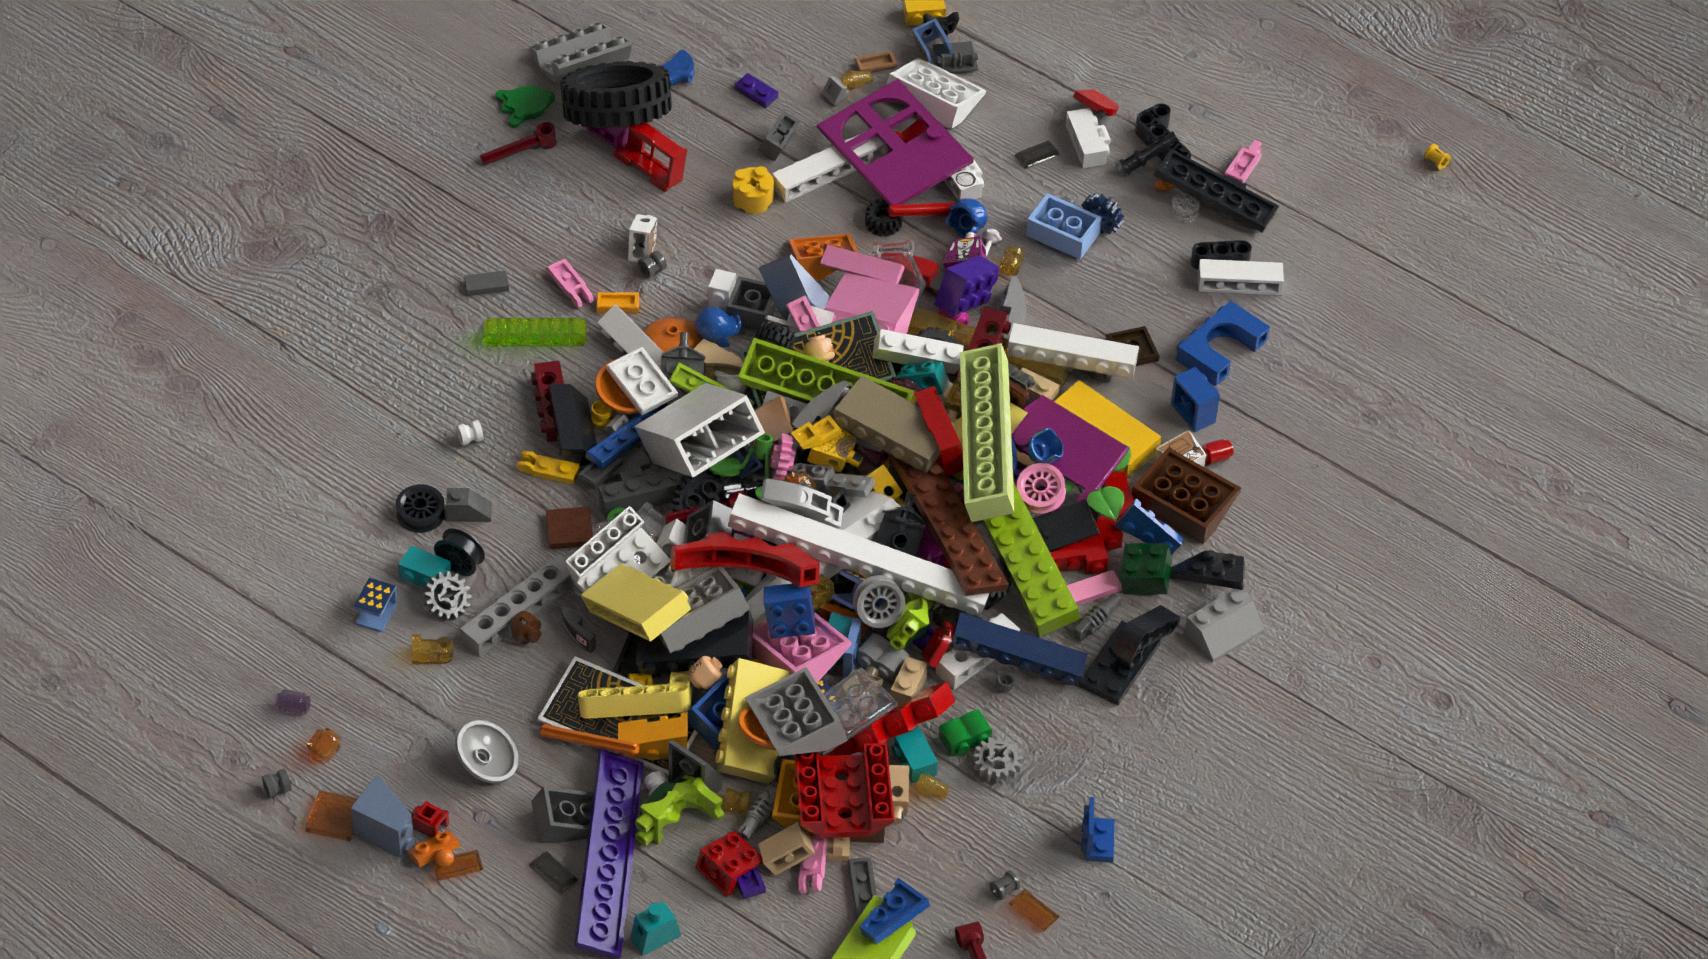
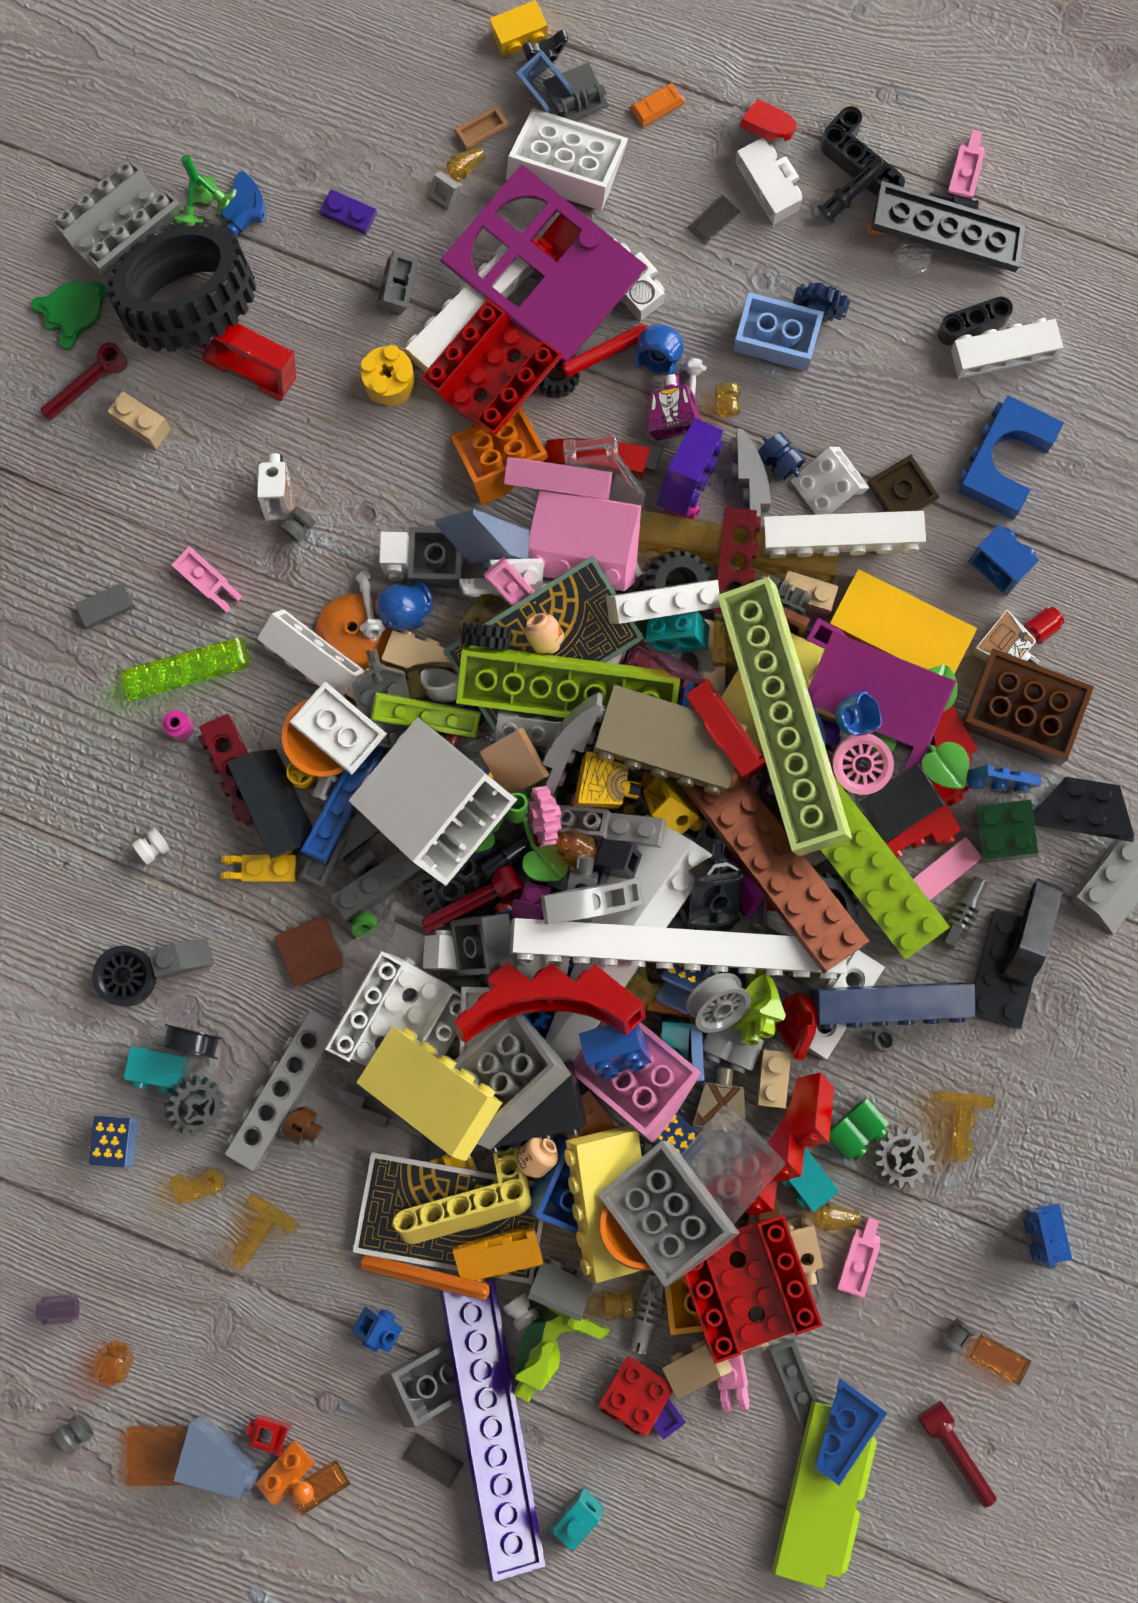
camera: 10 degrees left, 30 degrees up
(477, 682) = (261, 1228): none -> clear yellow bracket
(486, 751) = (323, 1322): light grey dish -> none
(517, 363) = (183, 730): none -> dark pink brick
(540, 768) = (381, 1333): none -> blue brick
(553, 175) = (139, 420): none -> tan brick
(624, 300) = (271, 591): light orange tile -> none
(651, 53) = (201, 190): none -> bright green plant
(689, 327) = (372, 627): none -> white piece
(817, 434) = (579, 781): yellow slope -> none
(830, 198) = (480, 363): none -> red slope
(940, 818) = (860, 1260): none -> bright pink hinge
(1015, 77) = (657, 105): none -> orange tile
(1042, 303) = (779, 454): none -> dark blue wheel
(1057, 737) = (964, 1119): none -> clear yellow bracket
(1076, 320) = (829, 481): none -> white bracket

